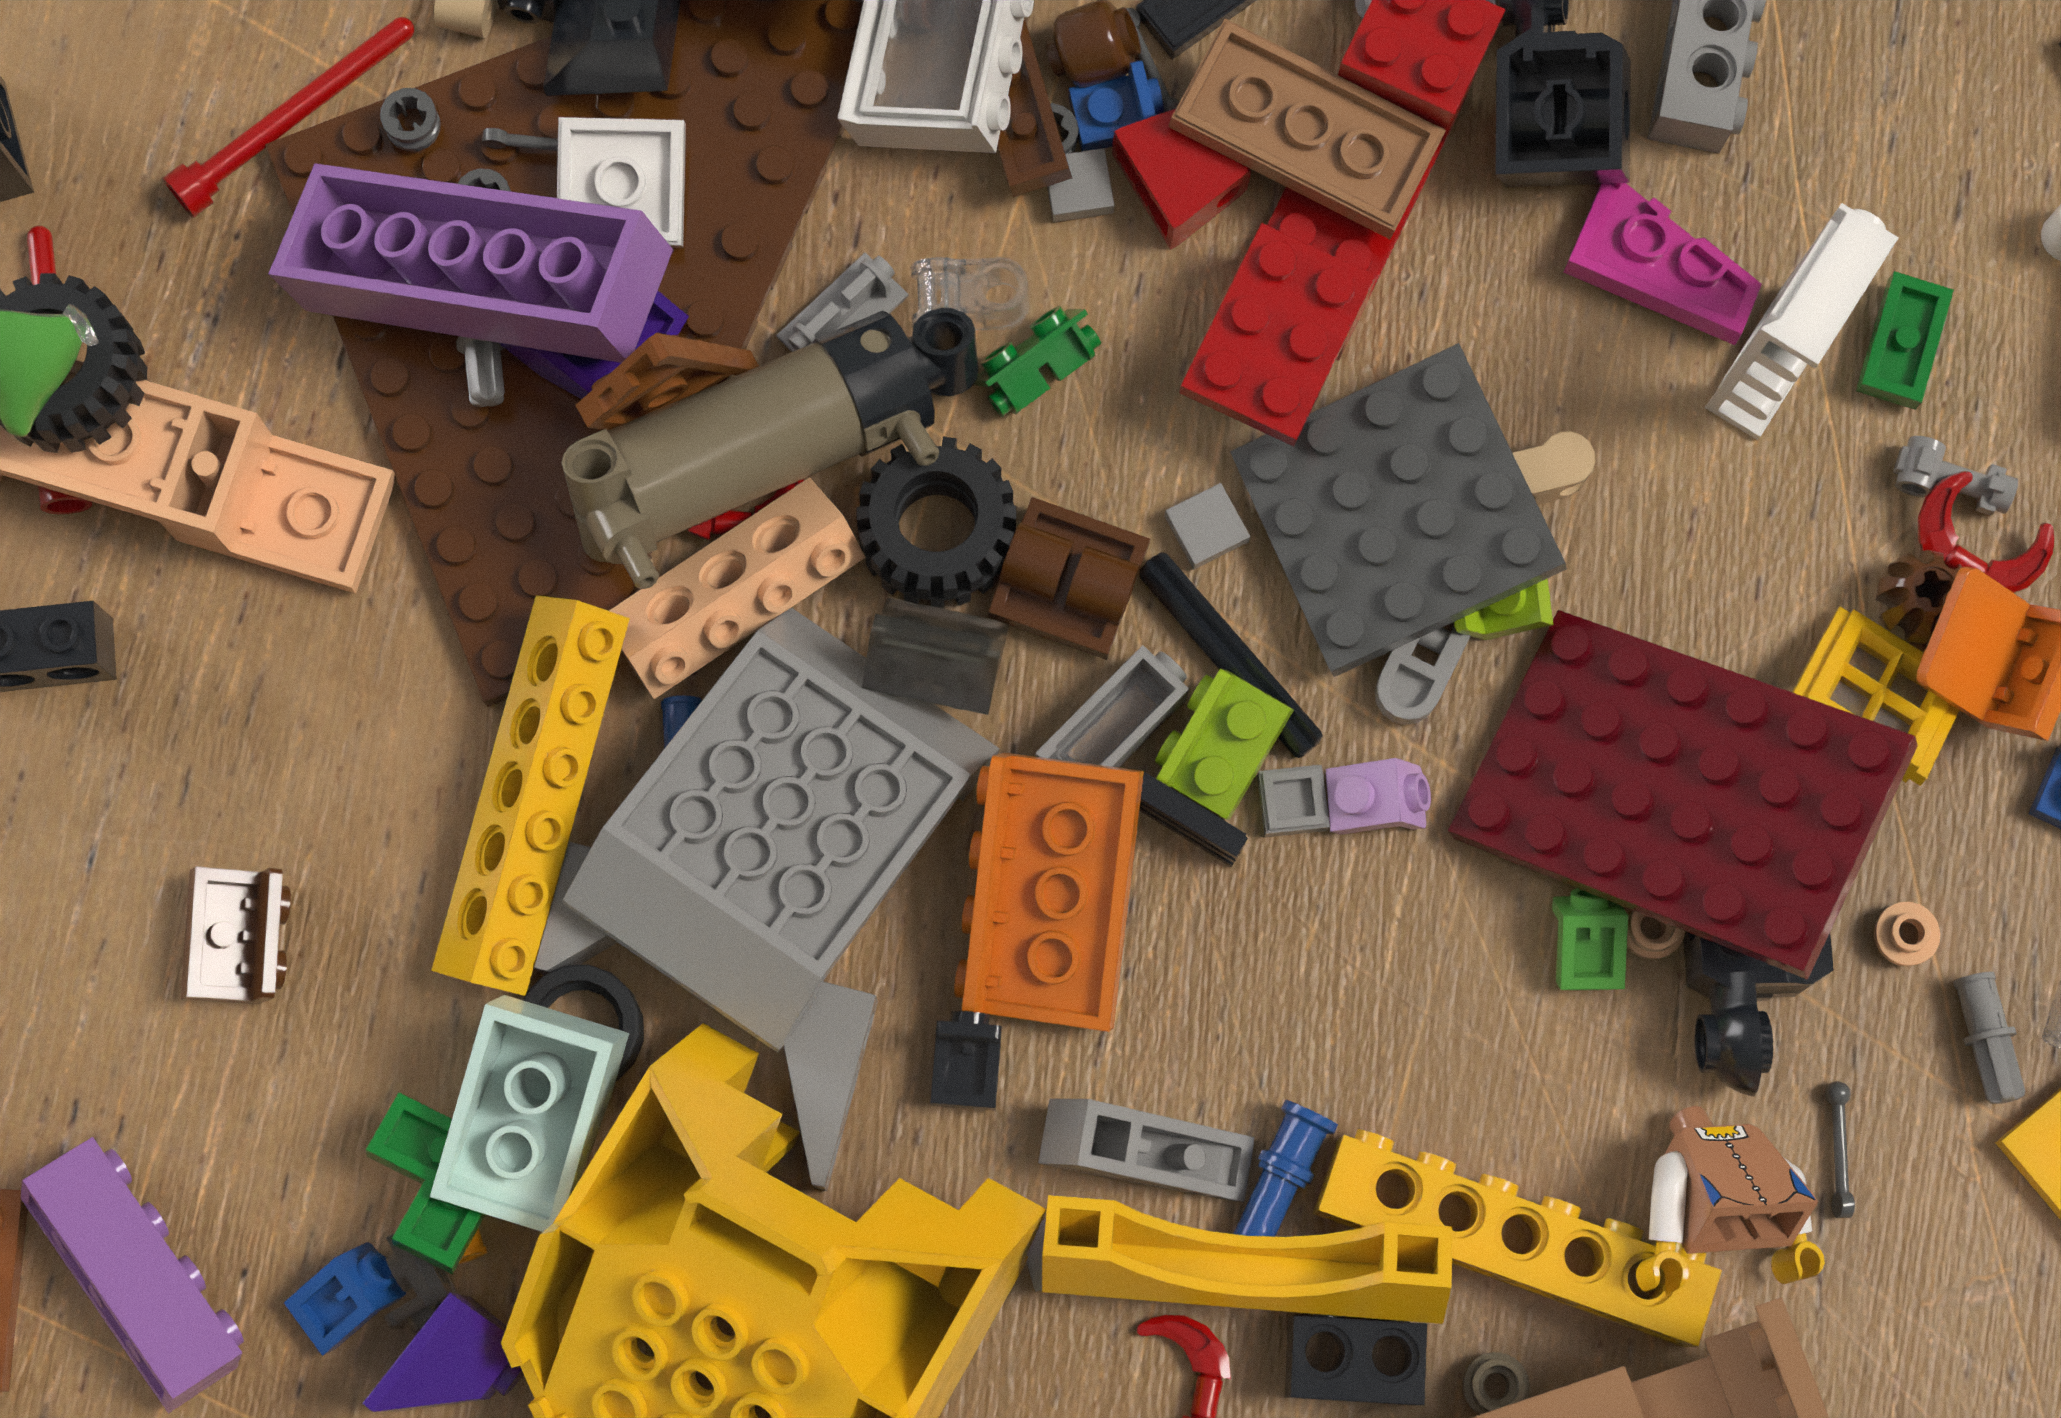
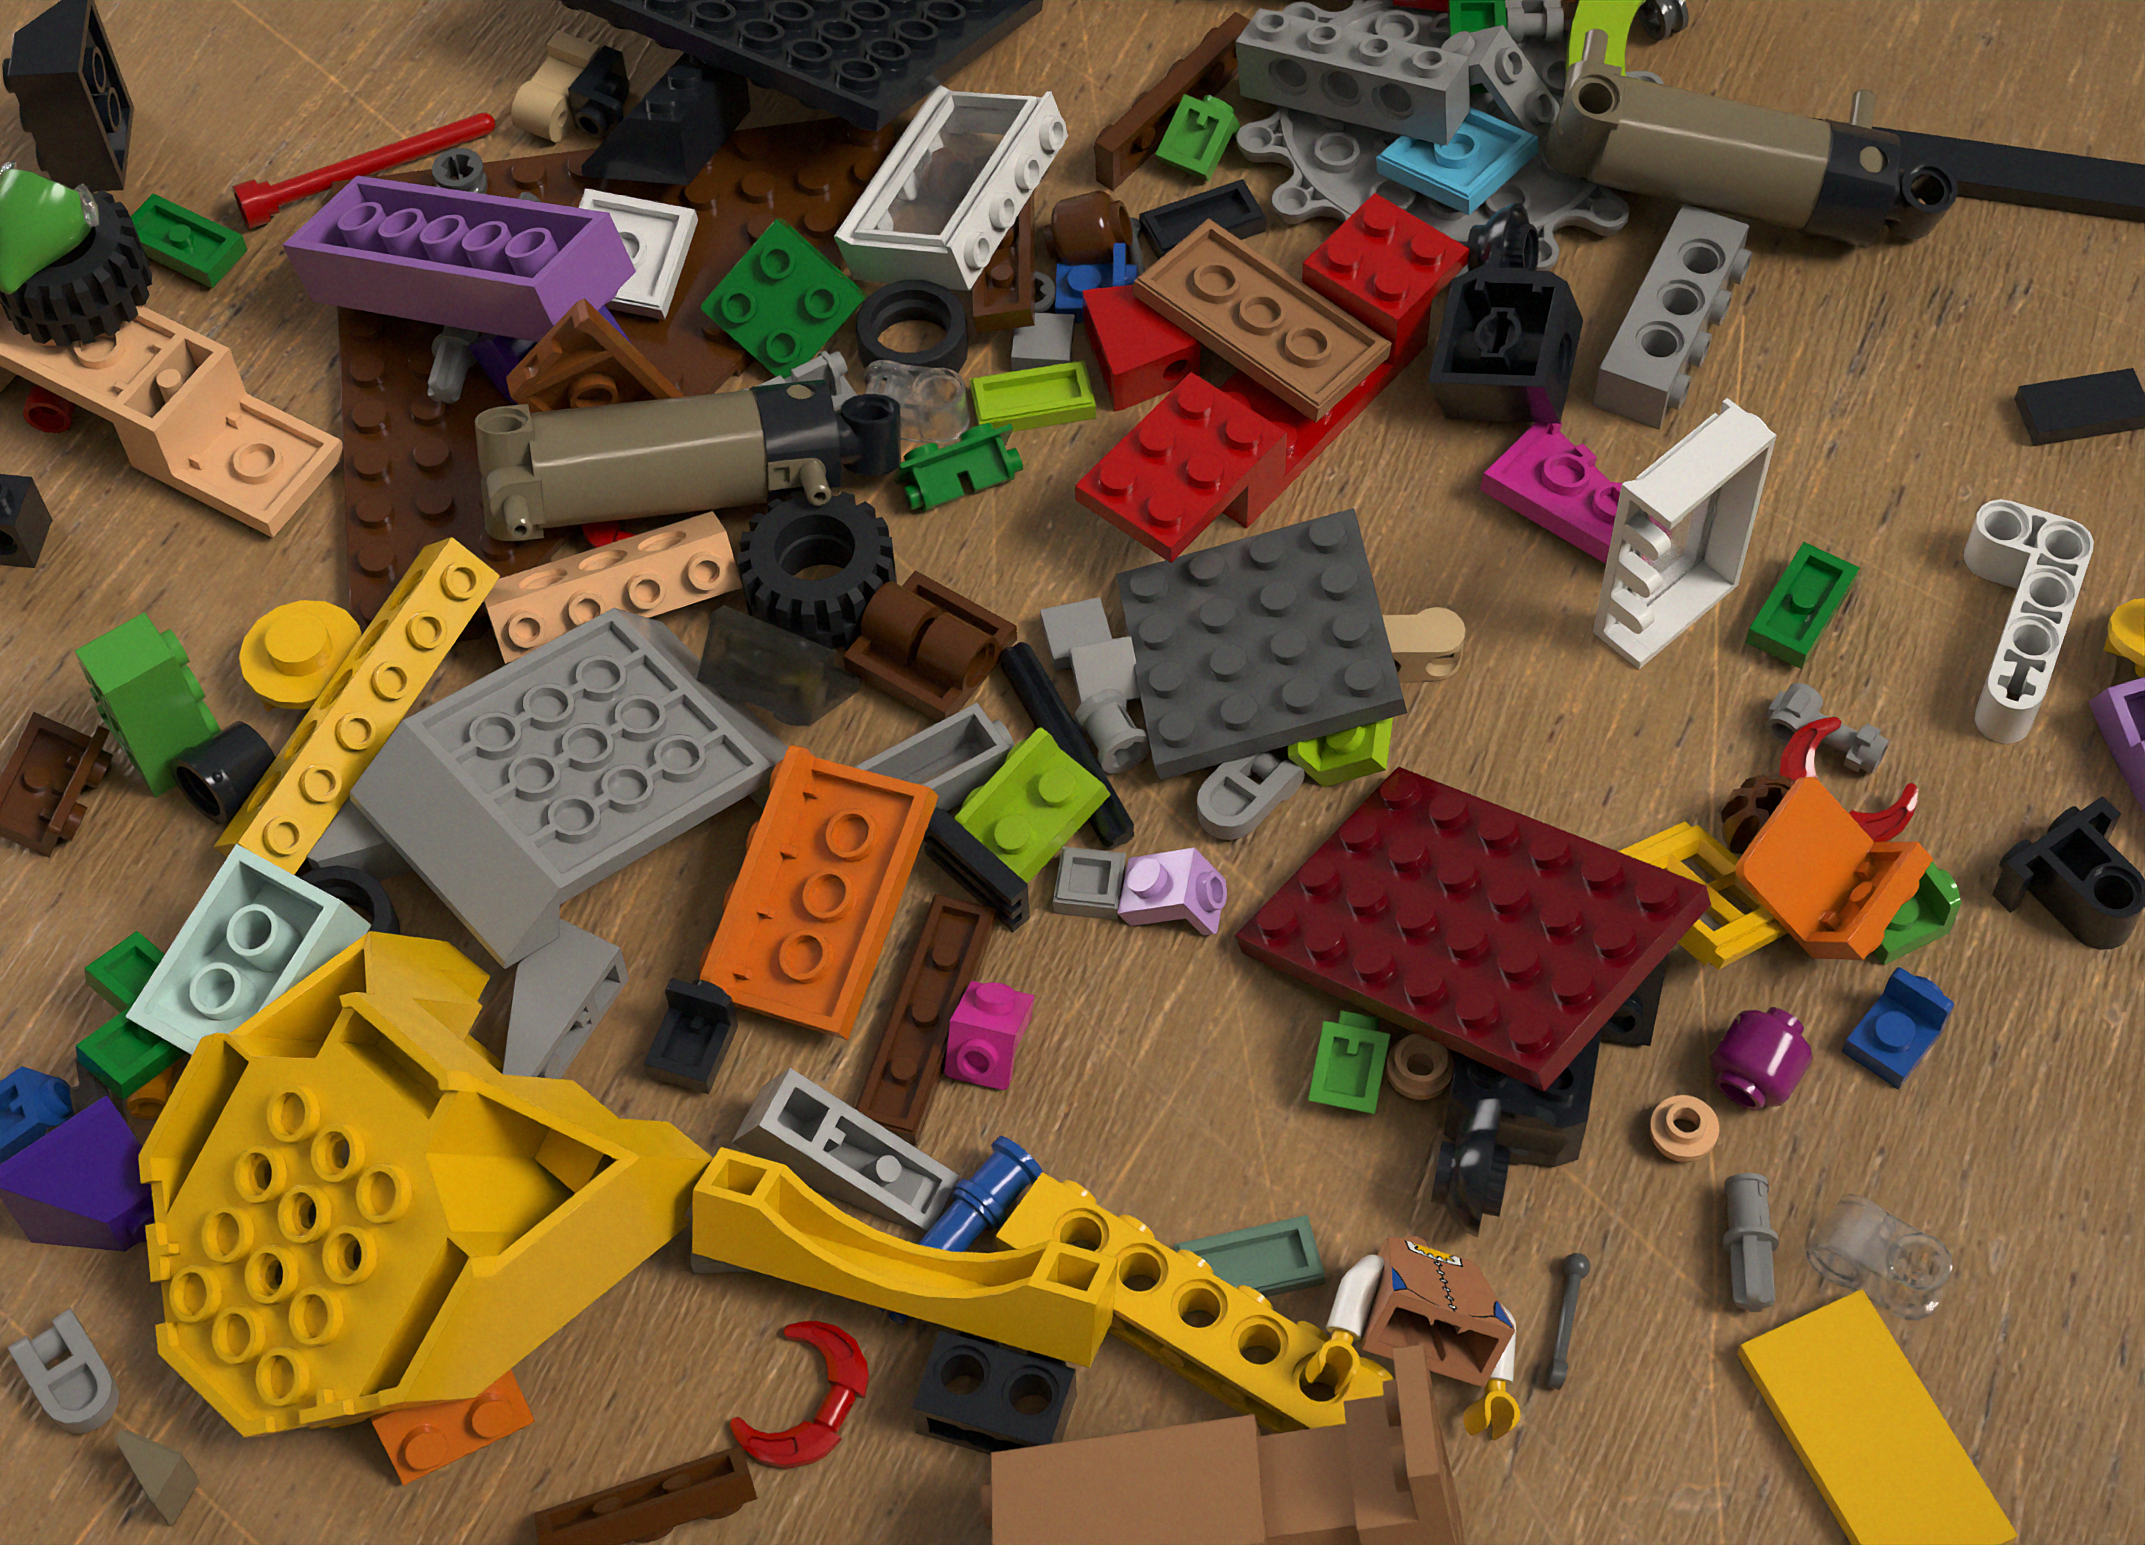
camera: 20 degrees right, 20 degrees down
(129, 253) = (187, 240): none -> green plate
(322, 841) = (147, 696): none -> bright green wedge
(410, 880) = (222, 770): none -> black piece
(441, 733) = (296, 652): none -> yellow piece
(808, 202) = (783, 300): none -> green bracket
(939, 165) = (913, 301): none -> black tyre
(1085, 255) = (1034, 397): none -> lime tile
(1176, 981) = (917, 1030): none -> reddish brown tile
(1244, 987) = (987, 1033): none -> dark pink bracket
(1249, 569) = (1105, 667): none -> light grey tile
(1274, 634) = (1112, 731): none -> light grey bush
(1549, 1155) = (1264, 1257): none -> sand green tile
(1964, 849) = (1761, 1058): none -> magenta head

